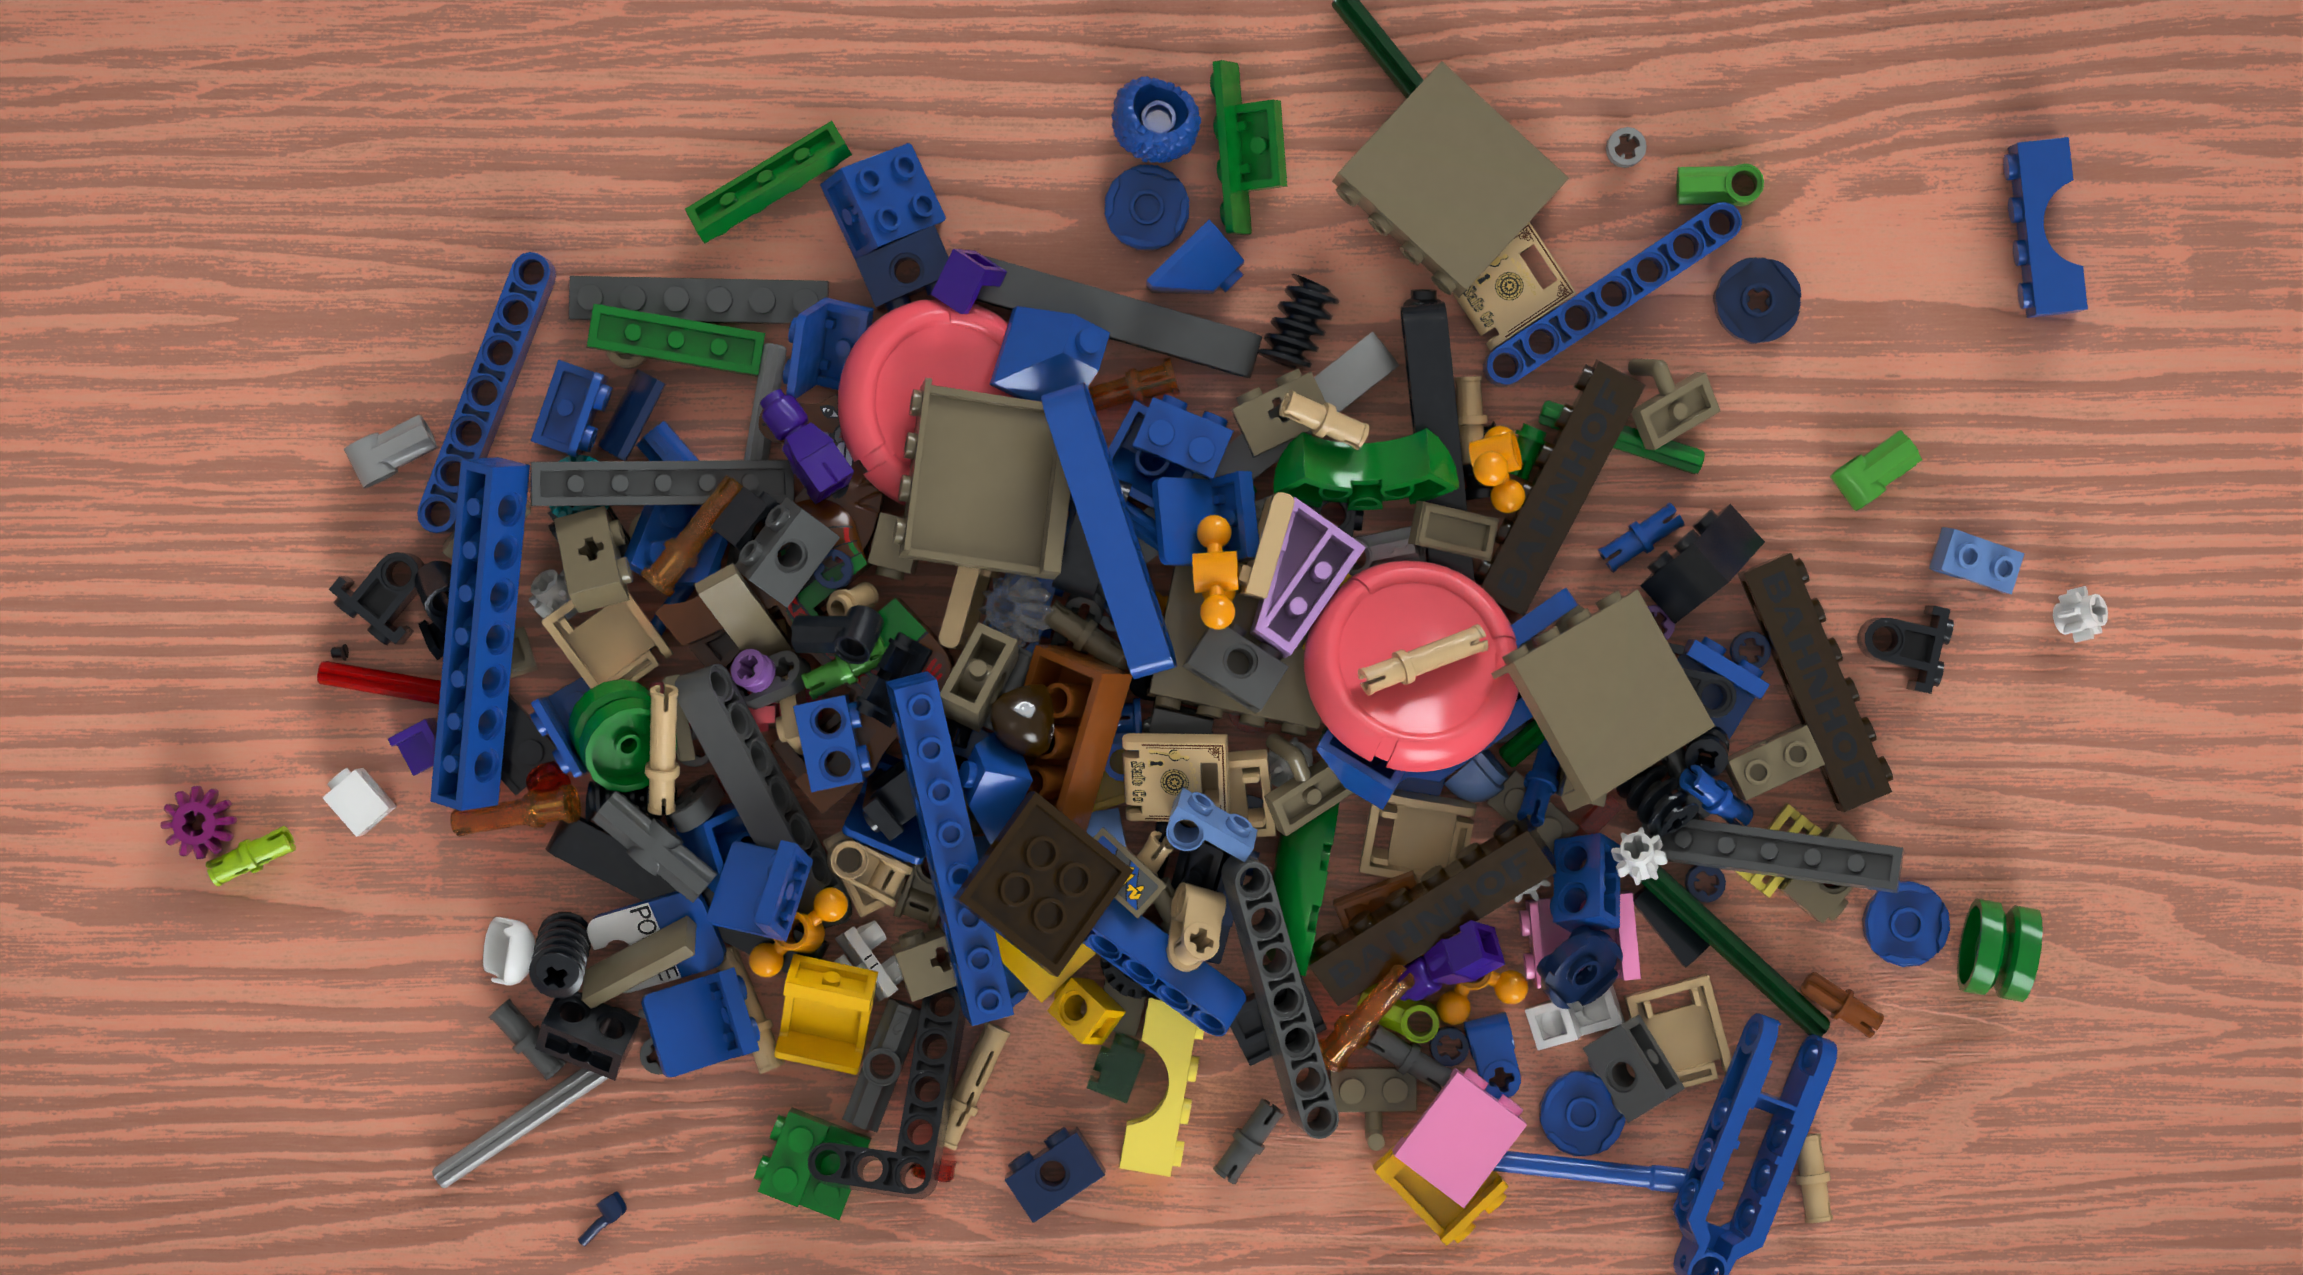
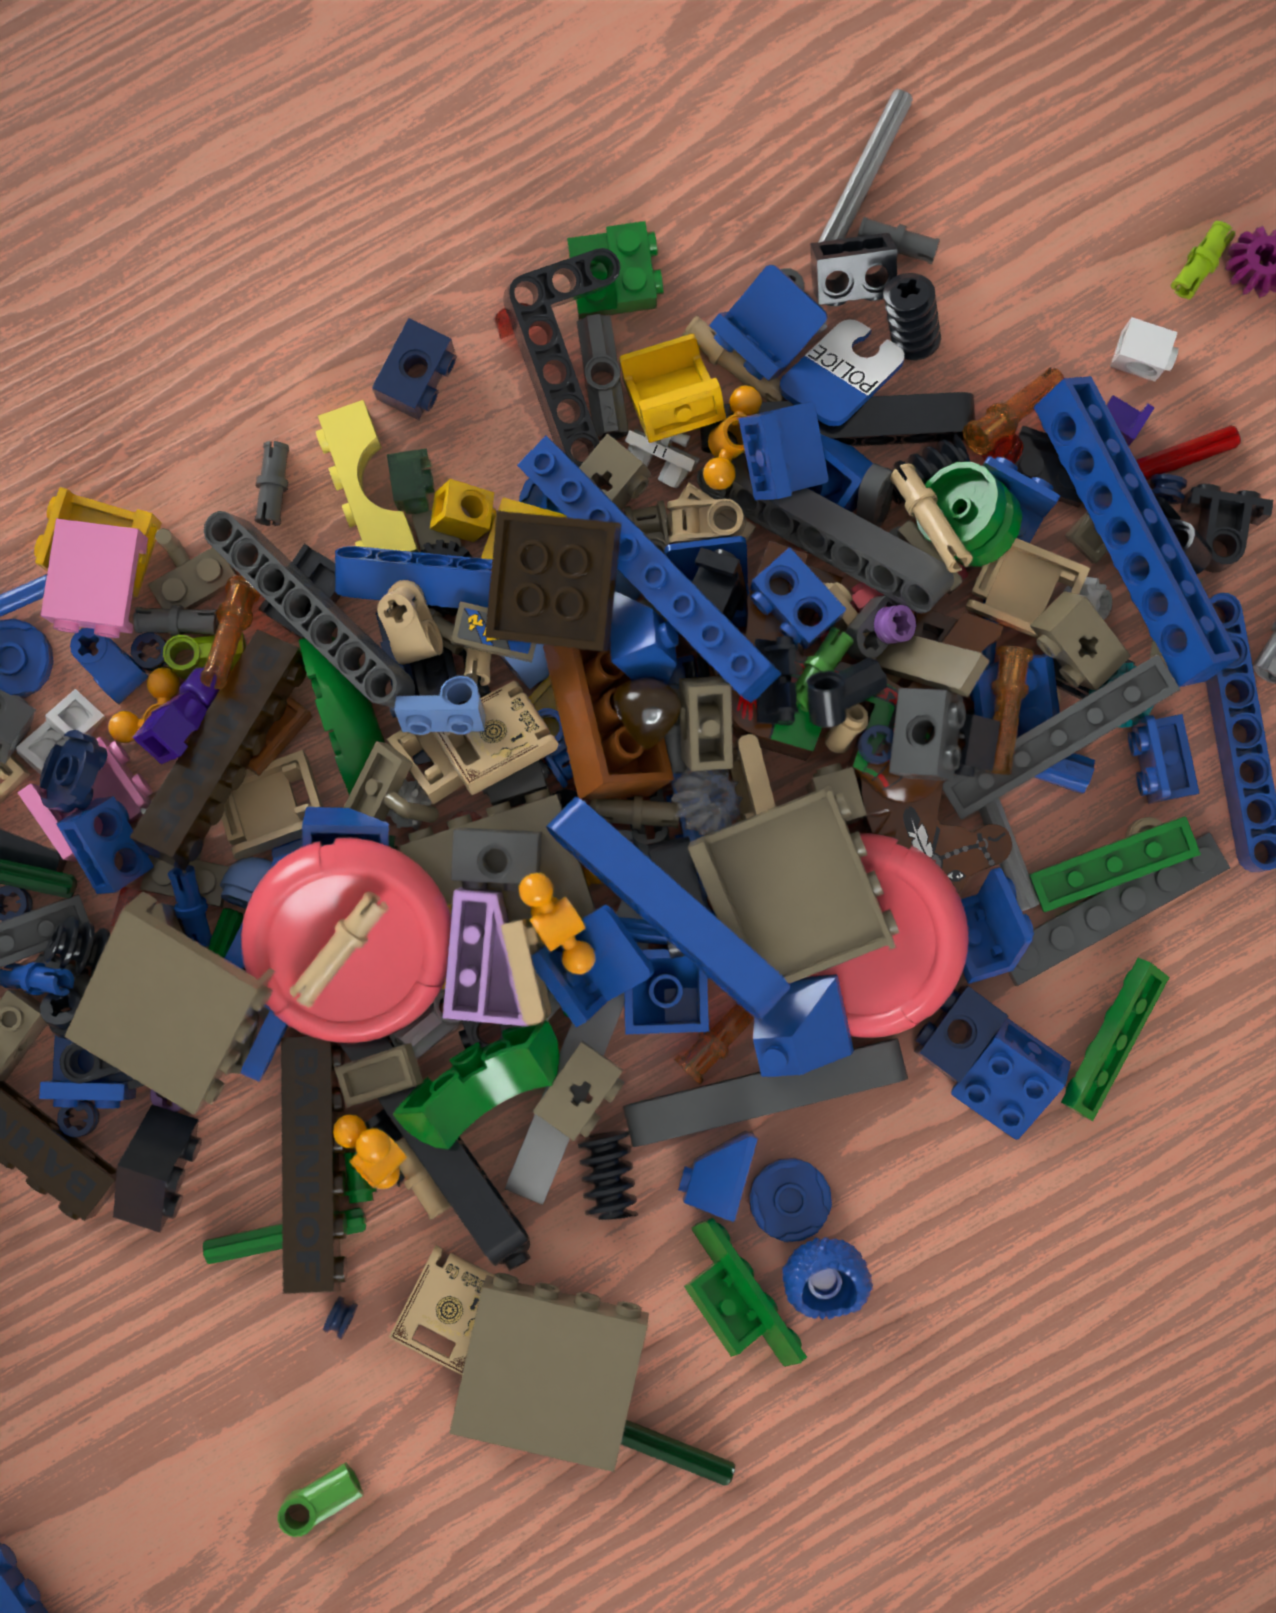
camera: 155 degrees right, 5 degrees down
(340, 652) = (1226, 462): black piece -> none
(416, 657) = (1169, 487): none -> dark blue bush
(508, 950) = (955, 299): white hair -> none
(611, 1208) = (754, 148): dark blue hand -> none
(631, 415) = (1113, 780): dark blue slope -> none
(639, 962) = (846, 344): dark tan tile -> none
(654, 846) = (890, 439): dark grey piece -> none
(808, 449) = (960, 834): dark purple piece -> none
(964, 277) = (910, 1052): dark purple panel -> none
(973, 1081) = (522, 402): tan pin -> none
(1183, 437) = (650, 1023): blue bracket -> none
(1324, 419) = (539, 1106): tan pin -> none
(1611, 335) = (340, 1317): none -> dark blue bush
(1632, 289) = (348, 1371): blue beam -> none
(1637, 153) = (404, 1486): light grey bush -> none
(1641, 537) = (221, 1160): blue pin -> none
(1649, 857) = (60, 892): white gear -> none
(1675, 408) = (251, 1286): dark tan plate -> none
(1782, 304) = (210, 1428): dark blue plate -> none
(1867, 475) = (58, 1321): bright green piece -> none

